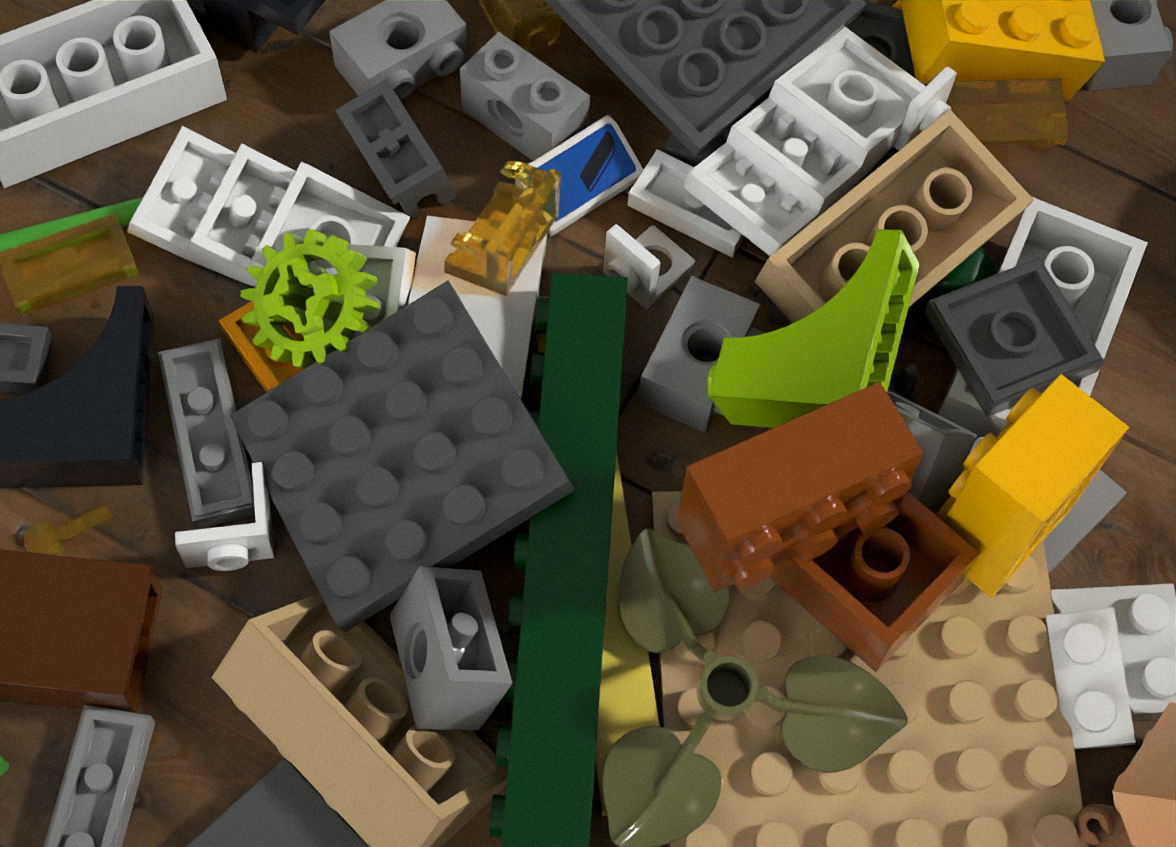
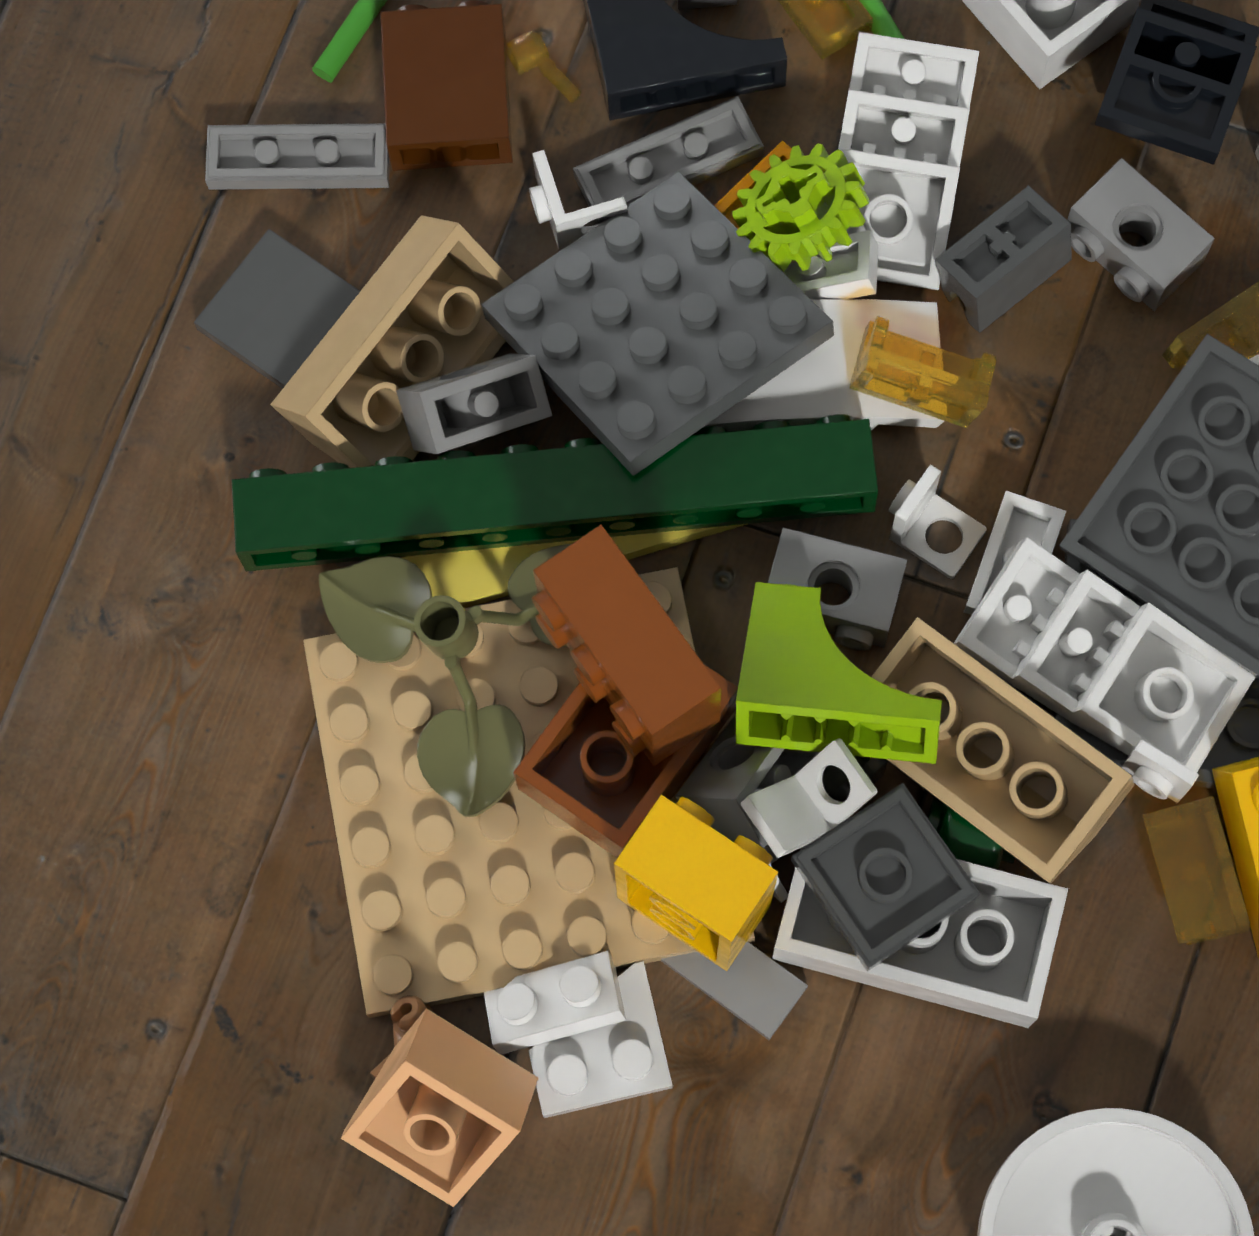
camera: 90 degrees right, 10 degrees up
(521, 98) = (1092, 369): light grey brick -> none
(593, 169) = (1026, 444): slope -> none
(945, 390) = (800, 809): none -> white bracket

